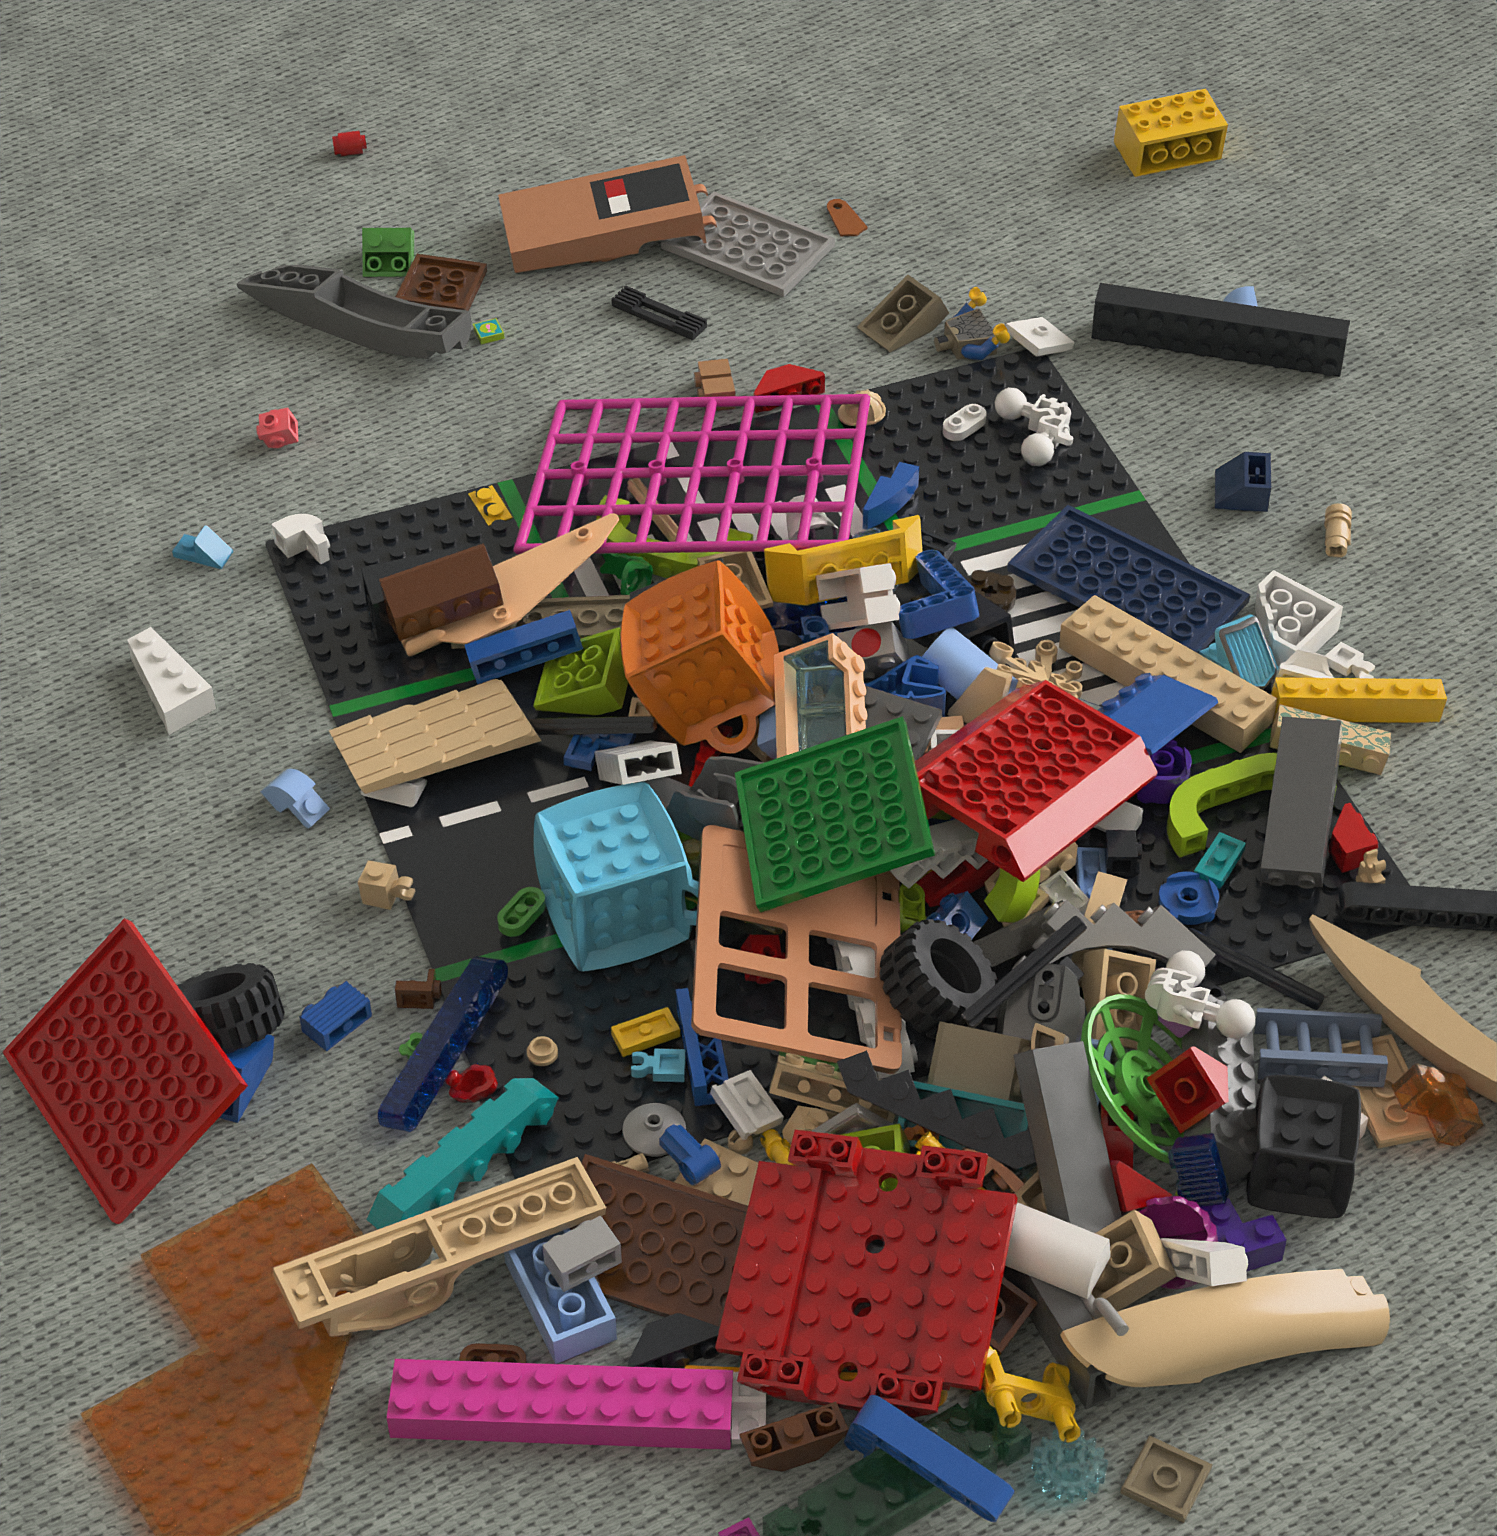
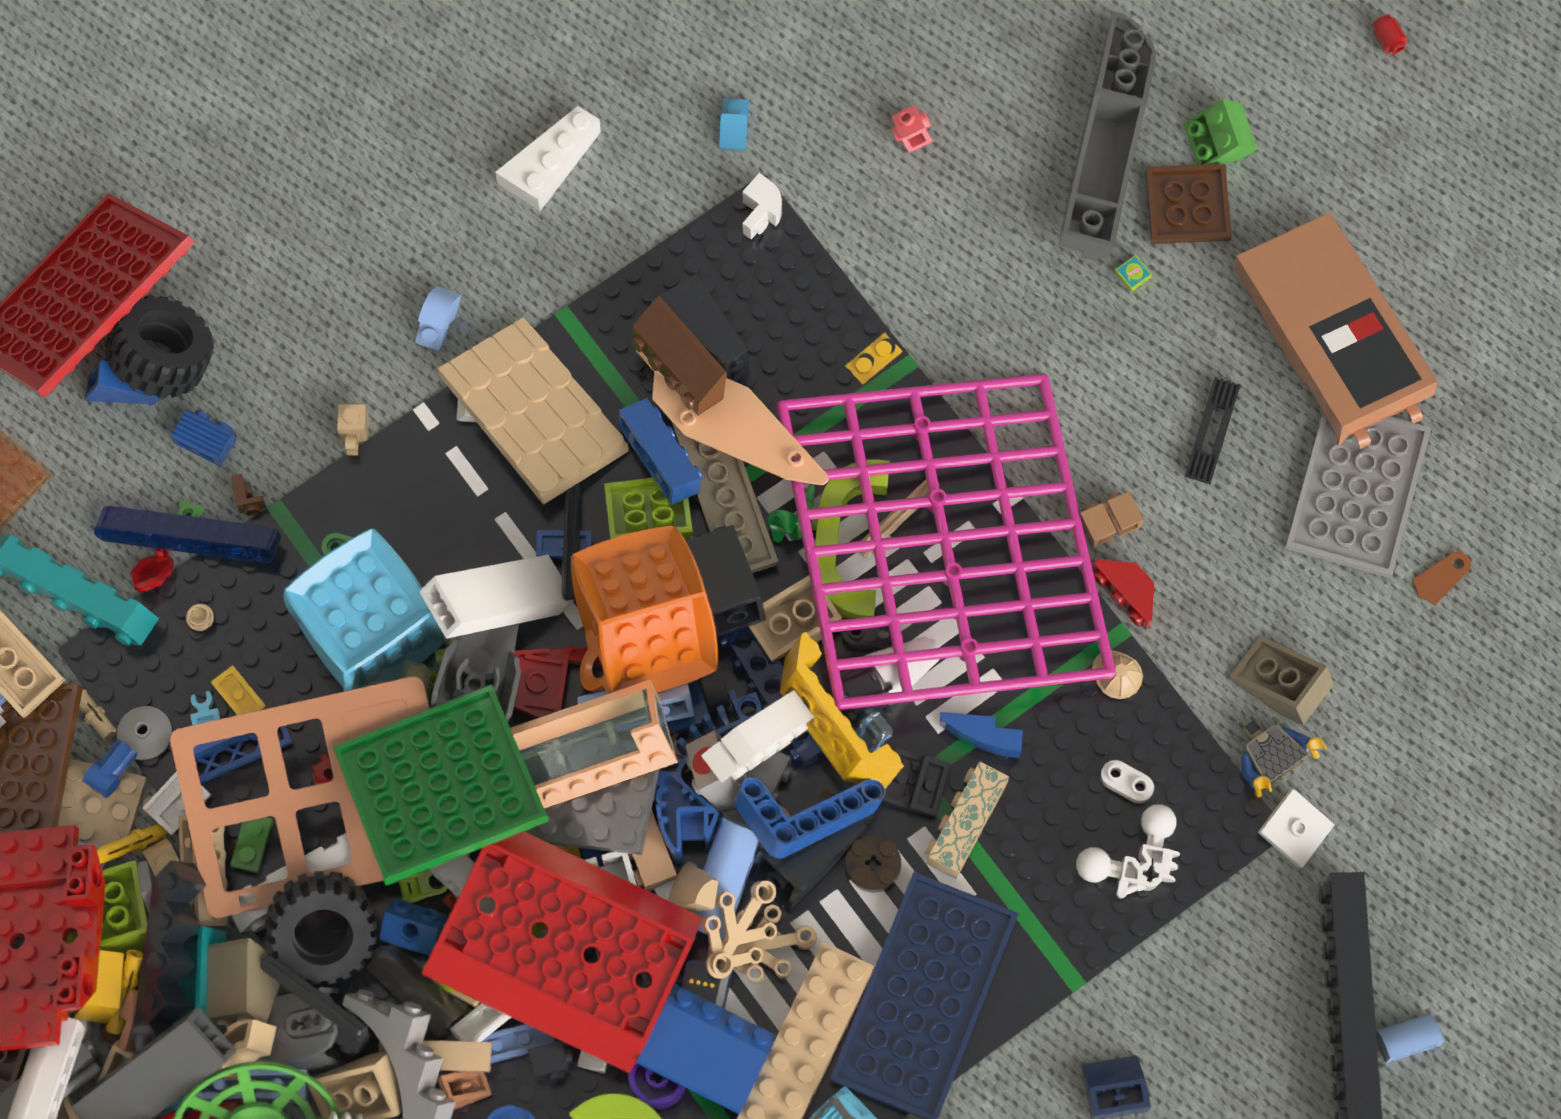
camera: 75 degrees right, 25 degrees up
(969, 522) = (967, 819): none -> tan brick

